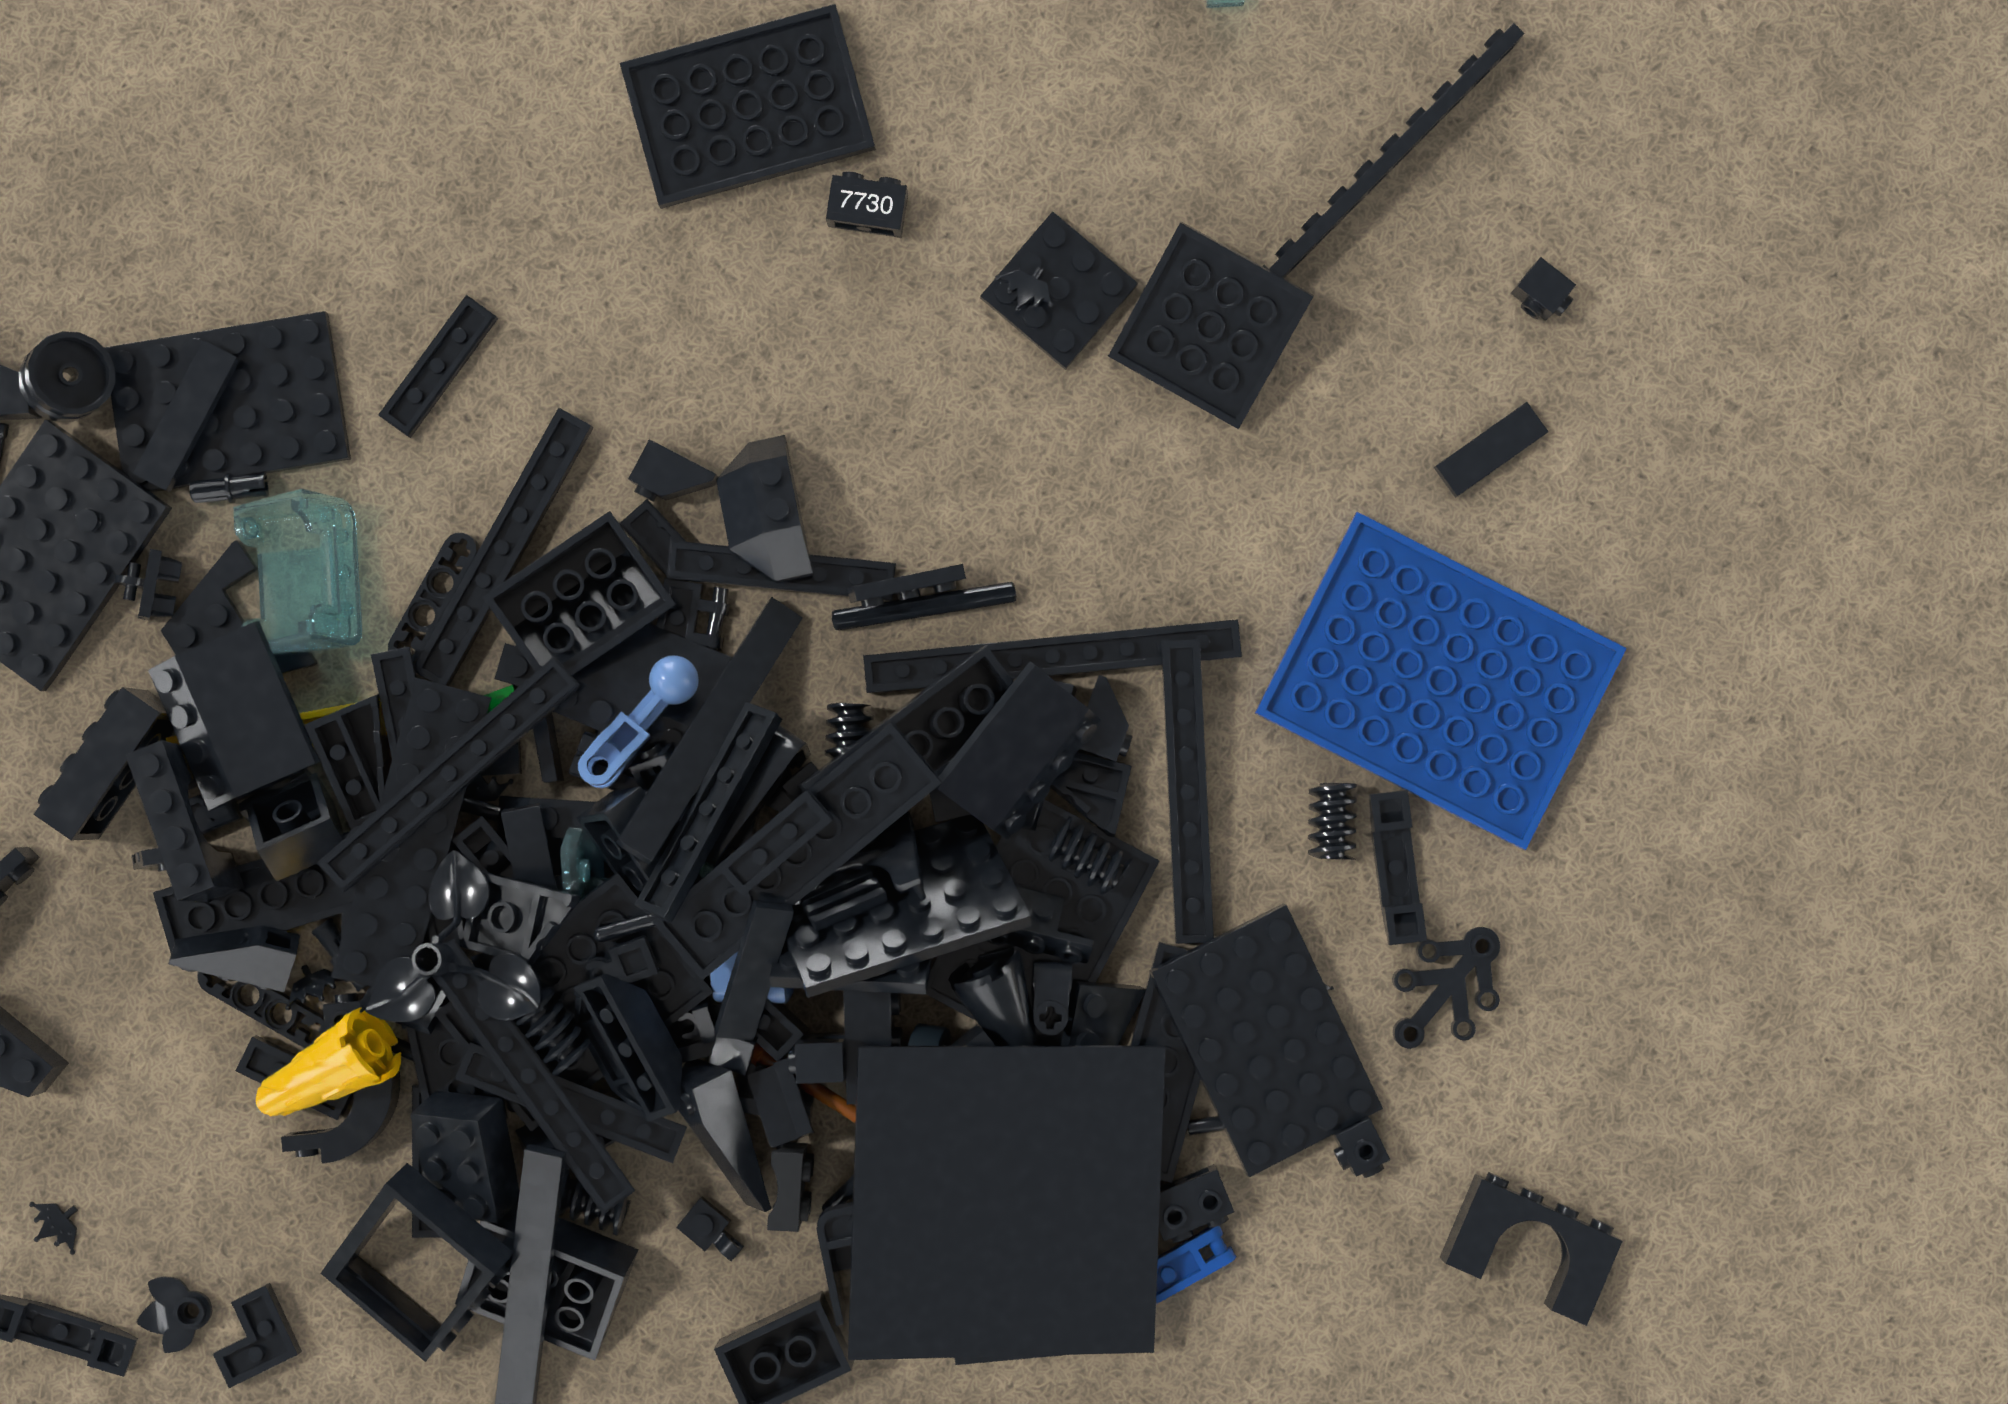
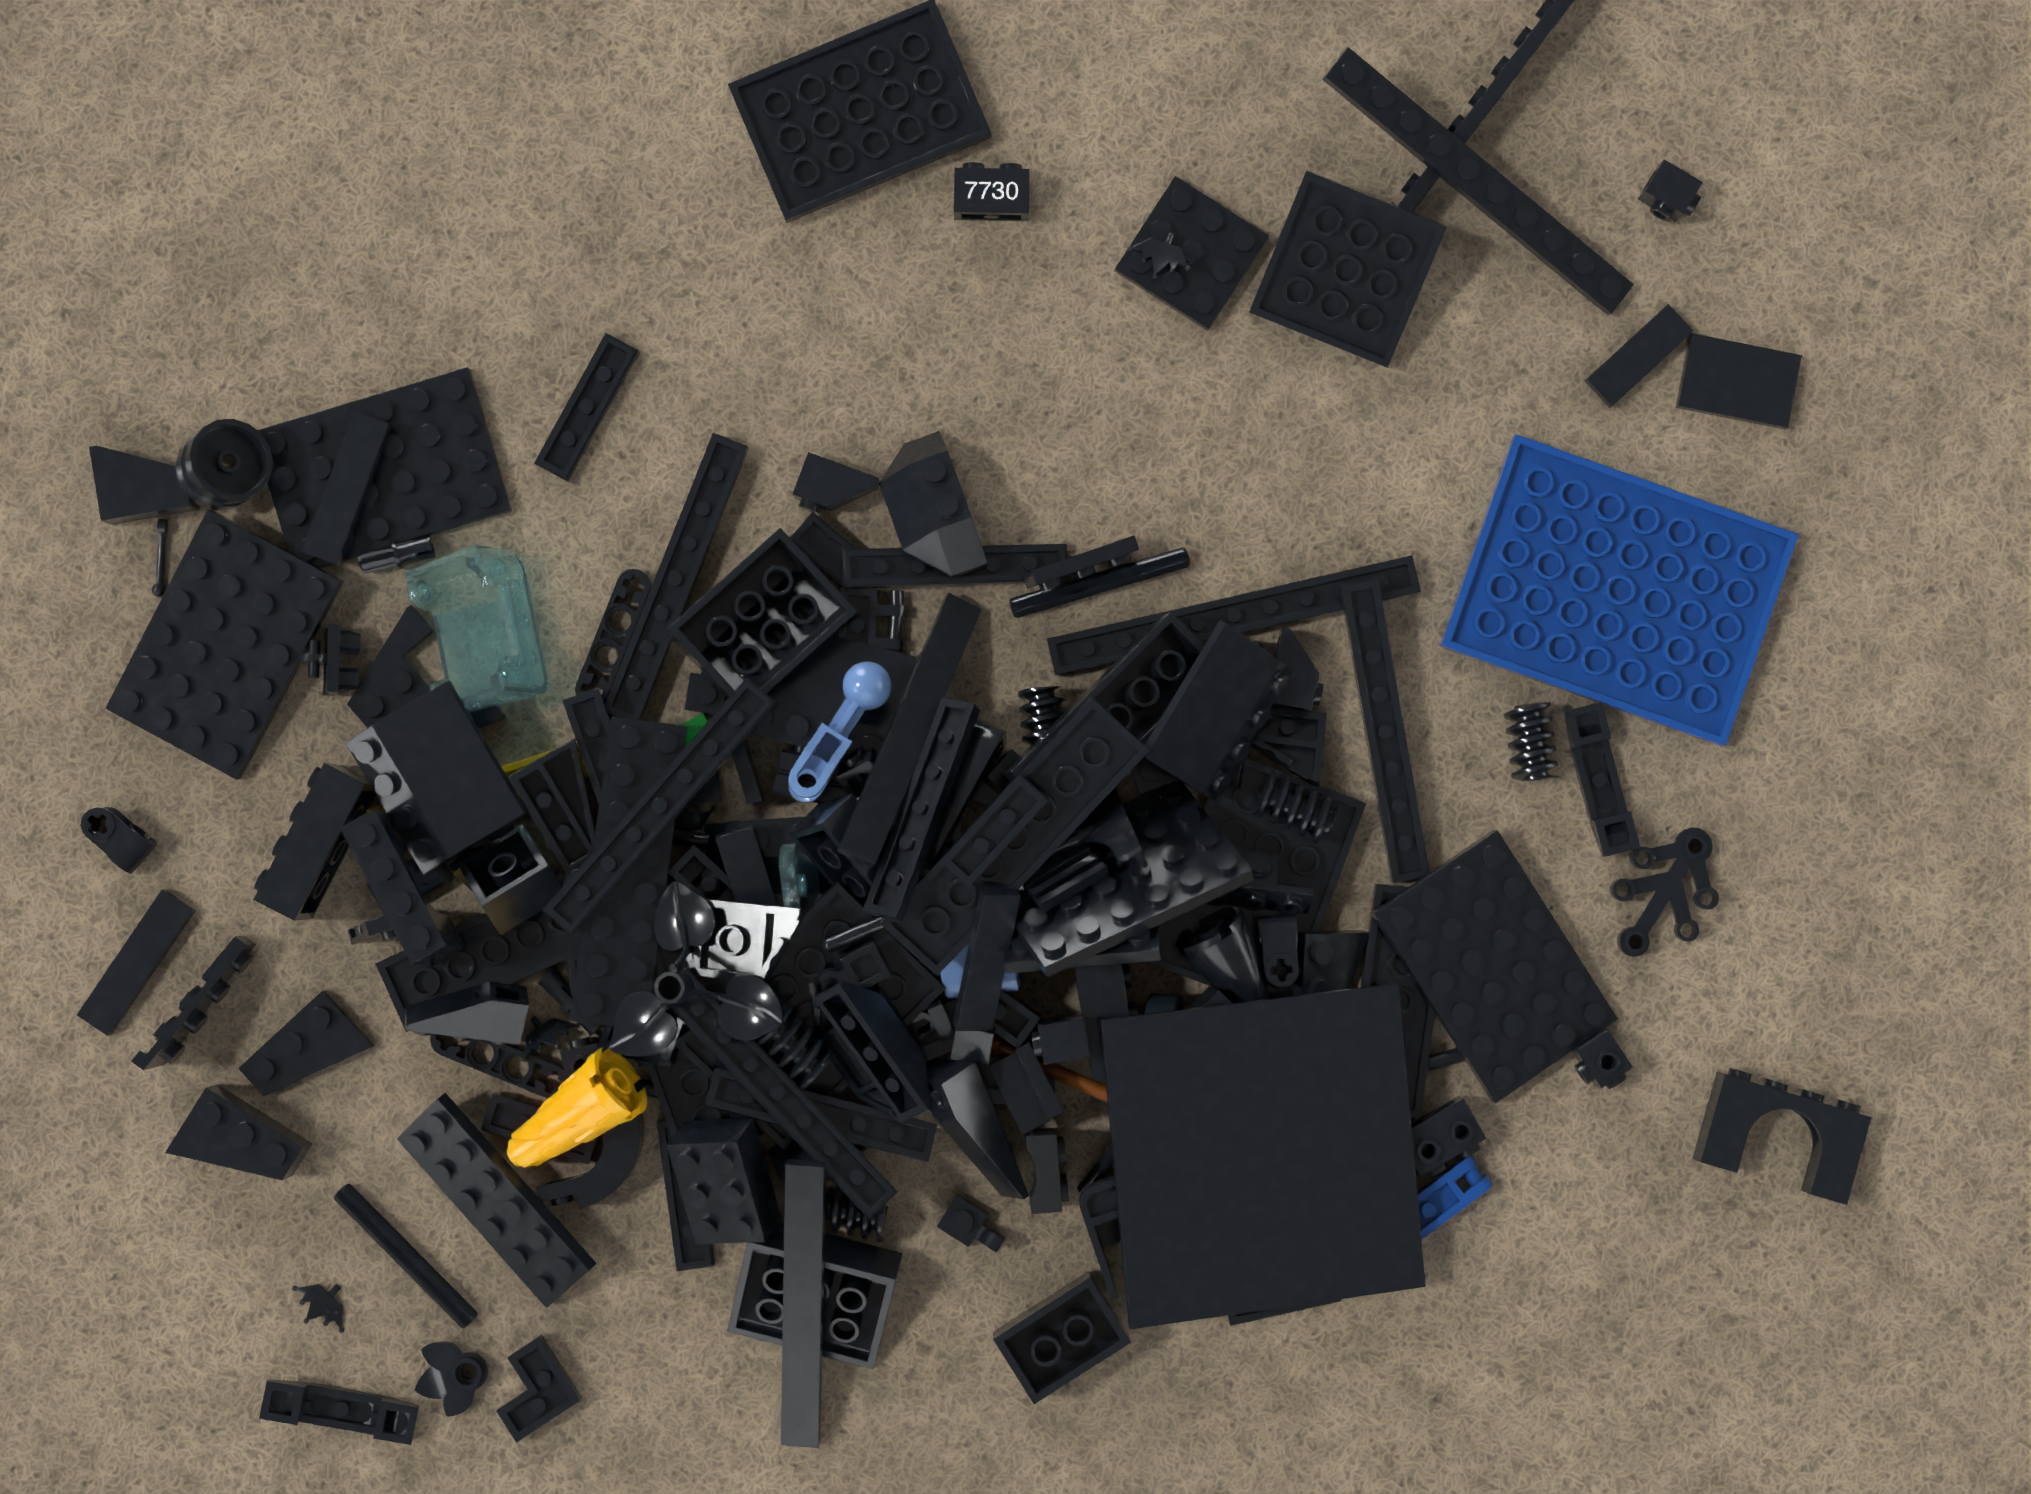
camera: 10 degrees left, 0 degrees up
(74, 964) = (305, 1045): none -> black wing
(145, 1187) = (405, 1255): none -> black axle
(240, 1144) = (496, 1200): none -> black plate
(388, 1303) = (660, 1337): black window -> none
(1351, 254) = (1477, 181): none -> black plate
(1587, 487) = (1738, 381): none -> black tile

